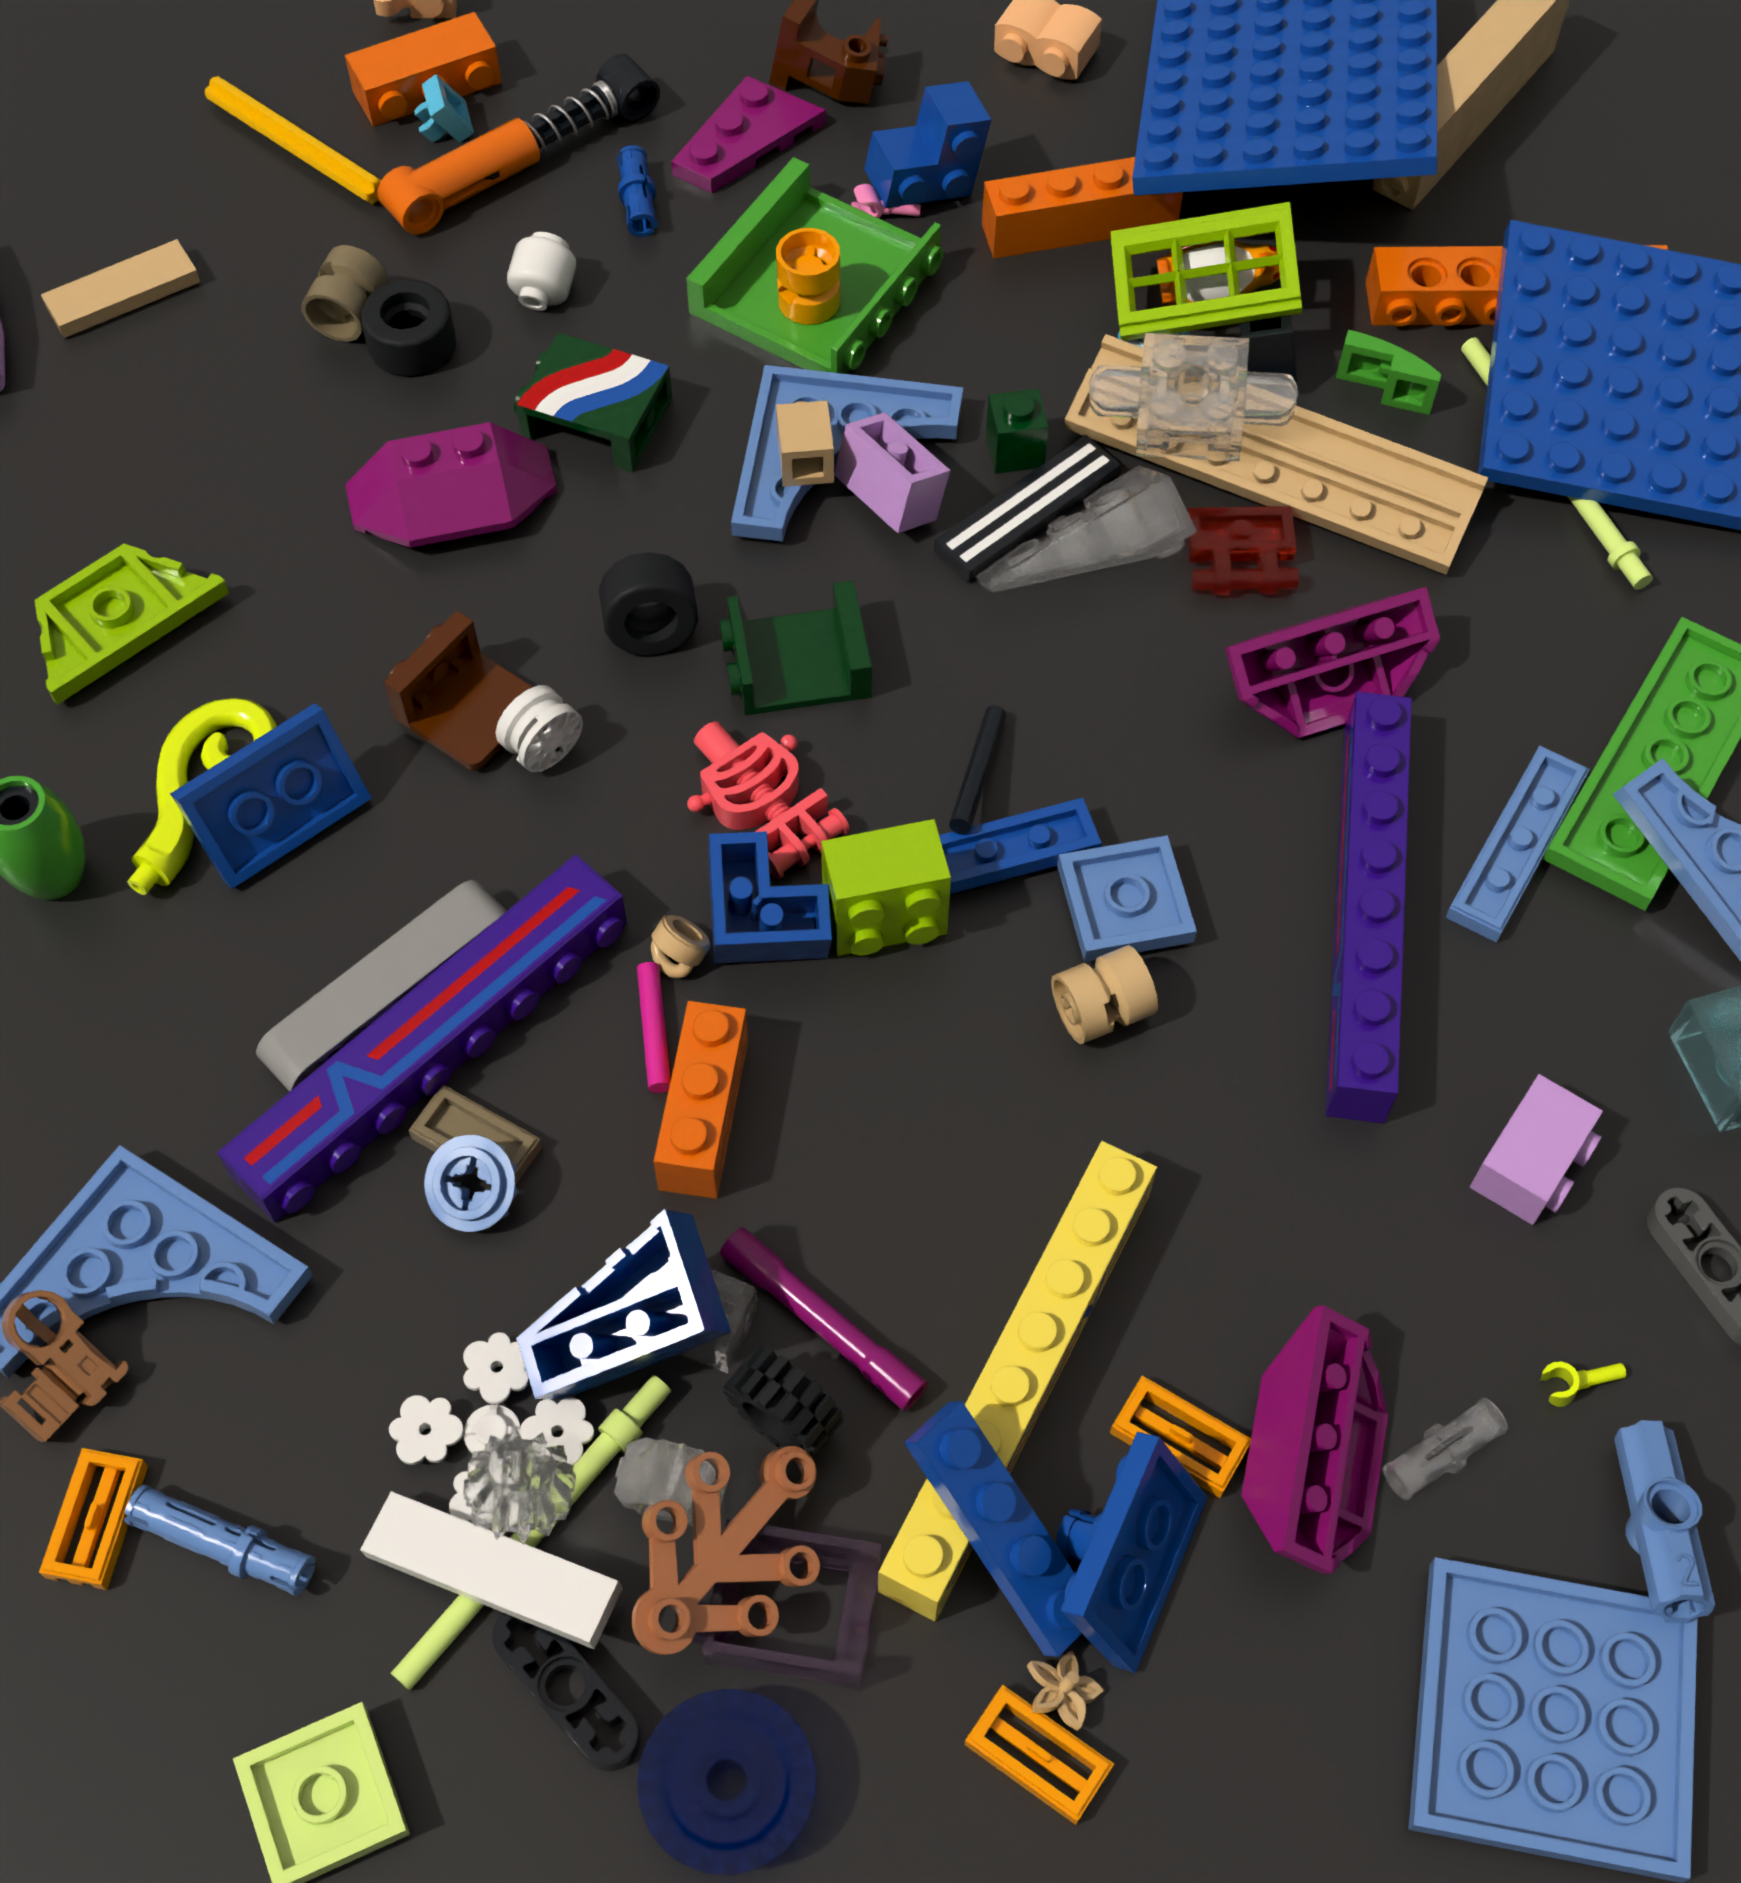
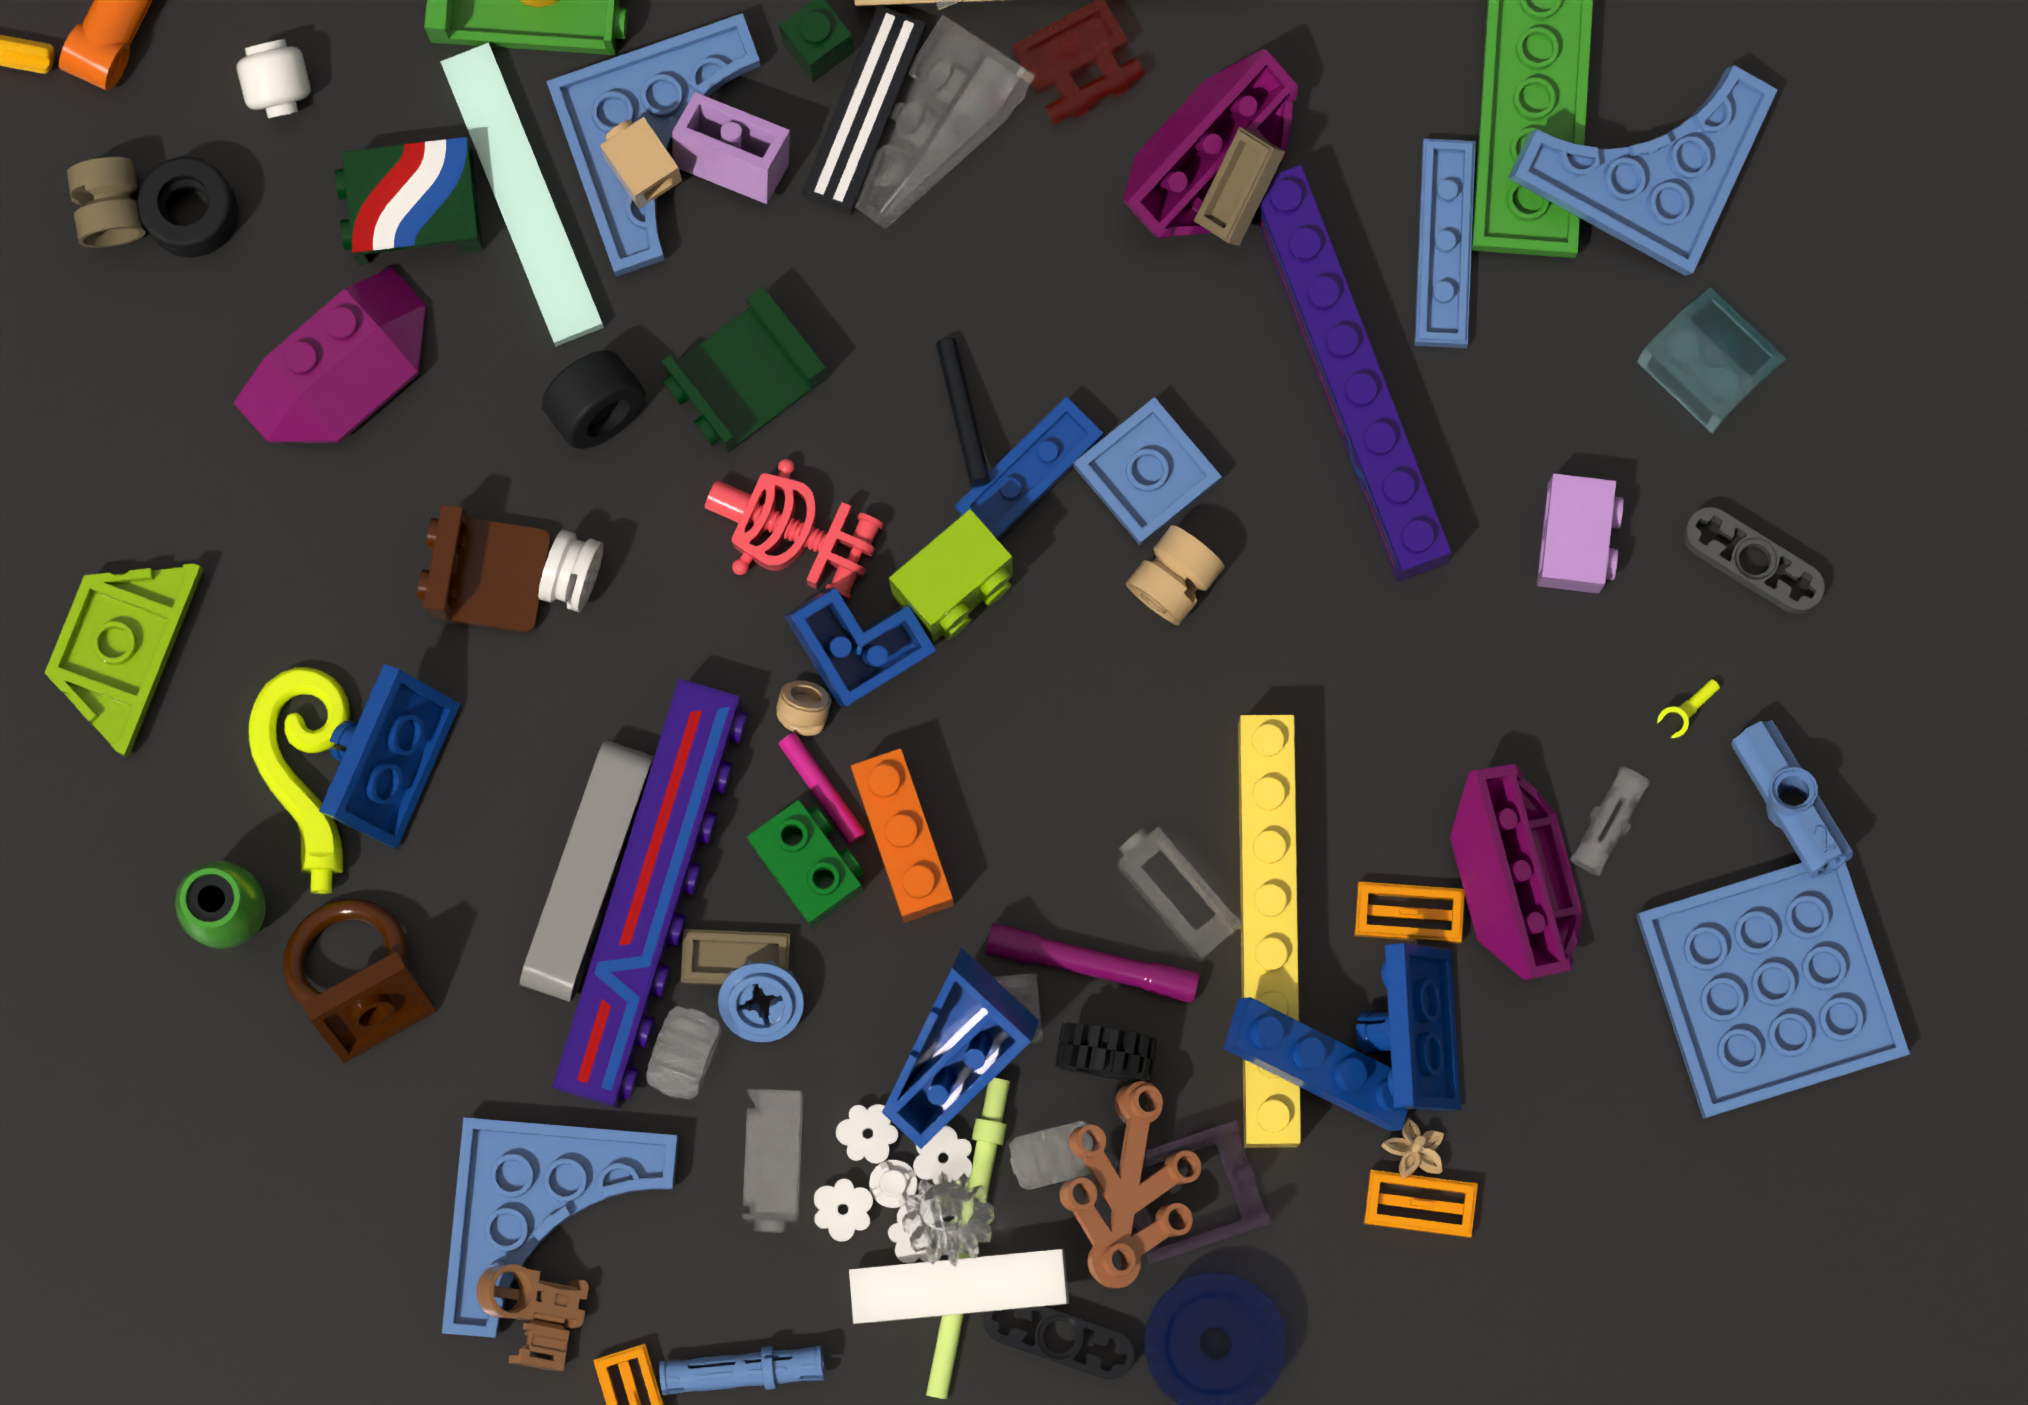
camera: 25 degrees left, 20 degrees up
(106, 990) = (367, 1003): none -> reddish brown tile
(363, 1188) = (683, 1052): none -> clear gear
(387, 1341) = (773, 1159): none -> clear window
(594, 1080) = (806, 862): none -> green brick
(692, 442) = (522, 194): none -> light aqua tile
(930, 1228) = (1200, 943): none -> clear window
(1342, 688) = (1239, 186): none -> dark tan tile

